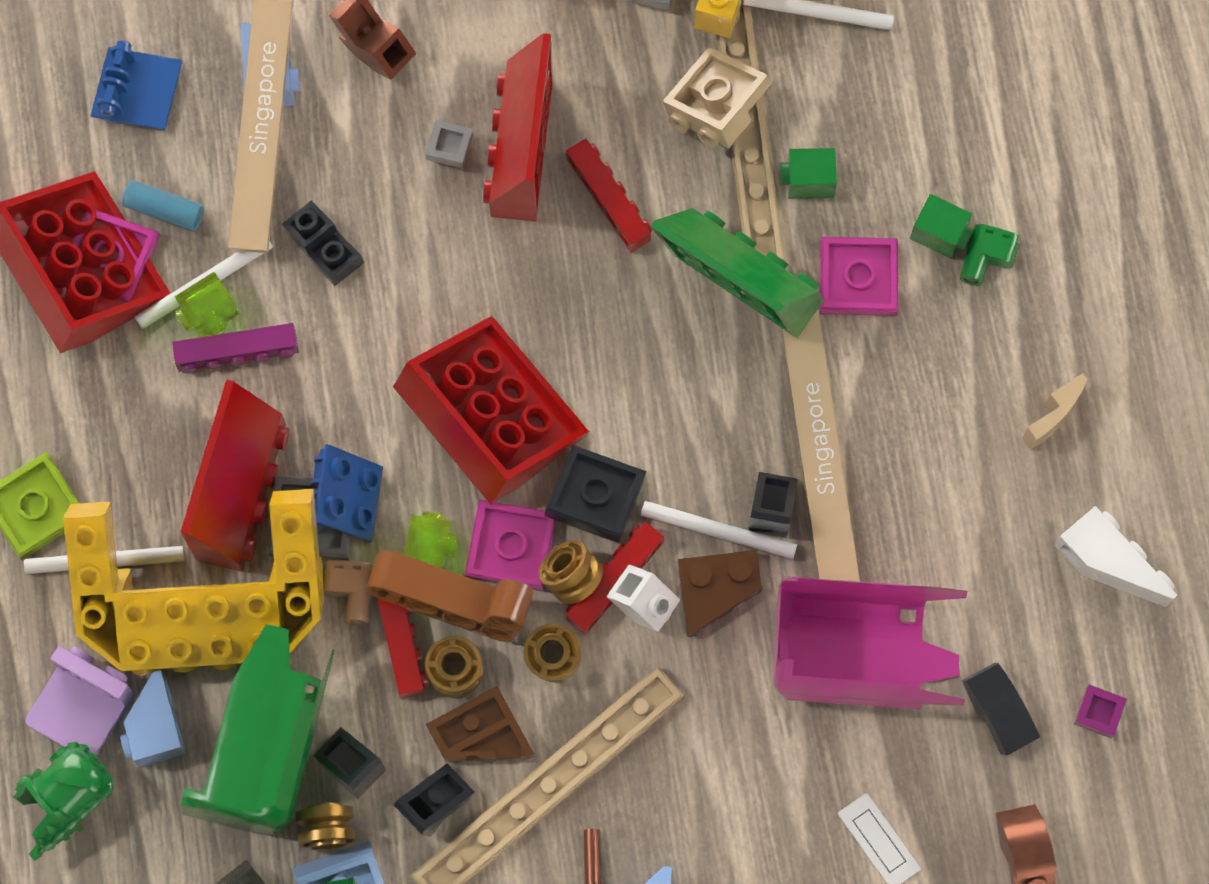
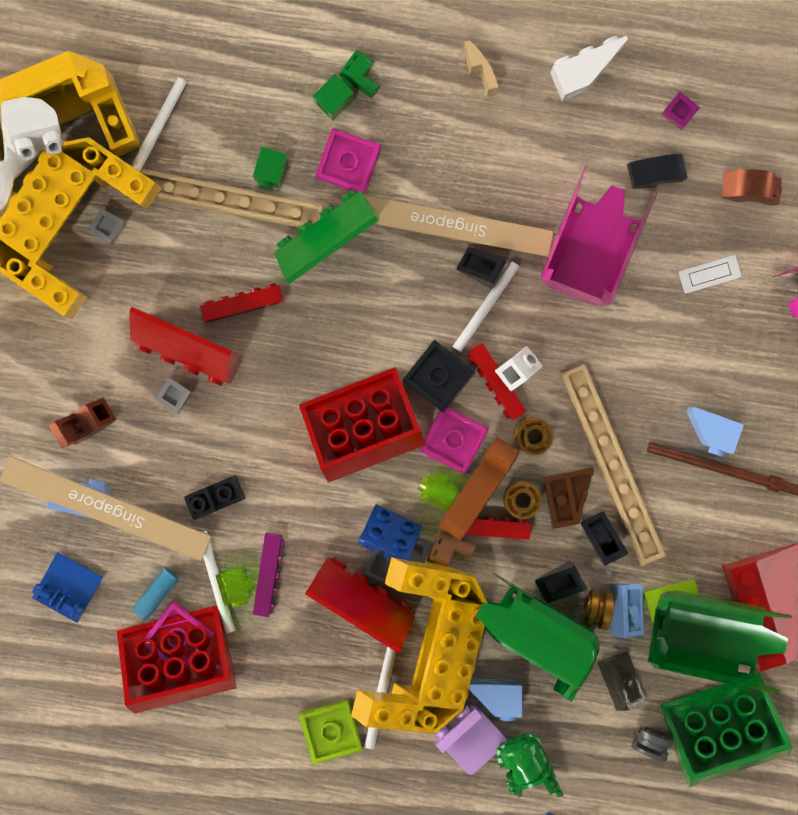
camera: 70 degrees left, 15 degrees up
(570, 572) = (487, 408): pearl gold wheel -> none
(715, 98) = (200, 212): tan plate -> none
(716, 585) = (521, 320): reddish brown wing -> none

